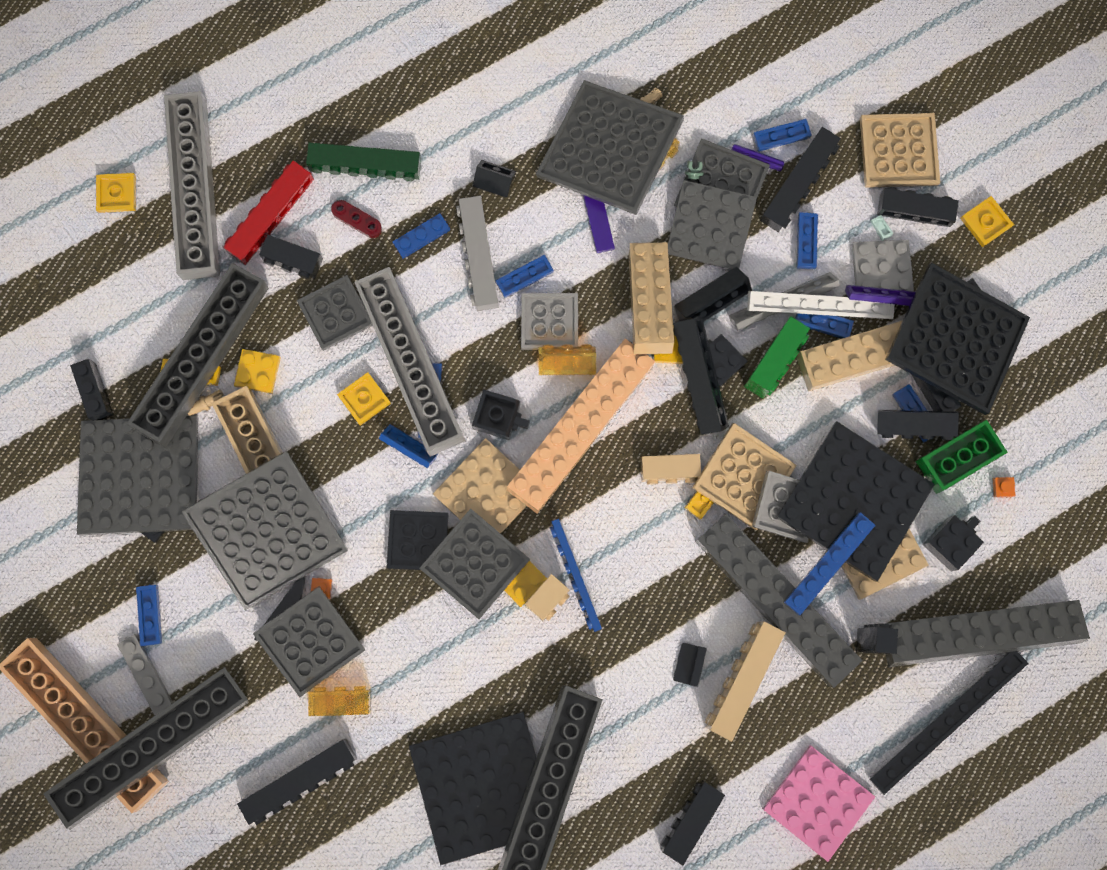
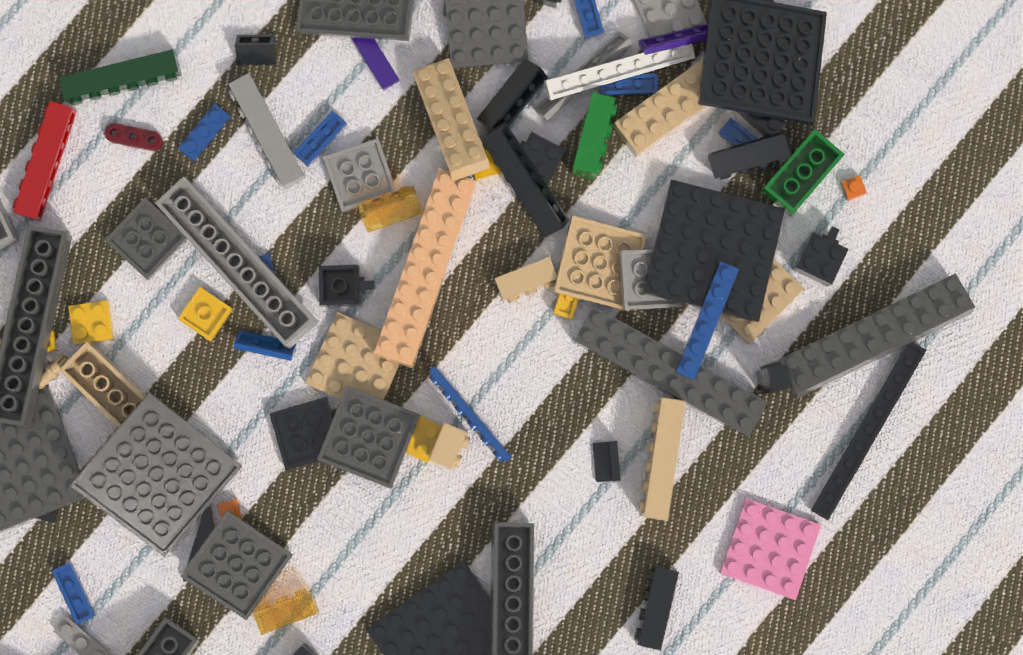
camera: 15 degrees left, 5 degrees up
(290, 257) = (83, 198): black brick -> none

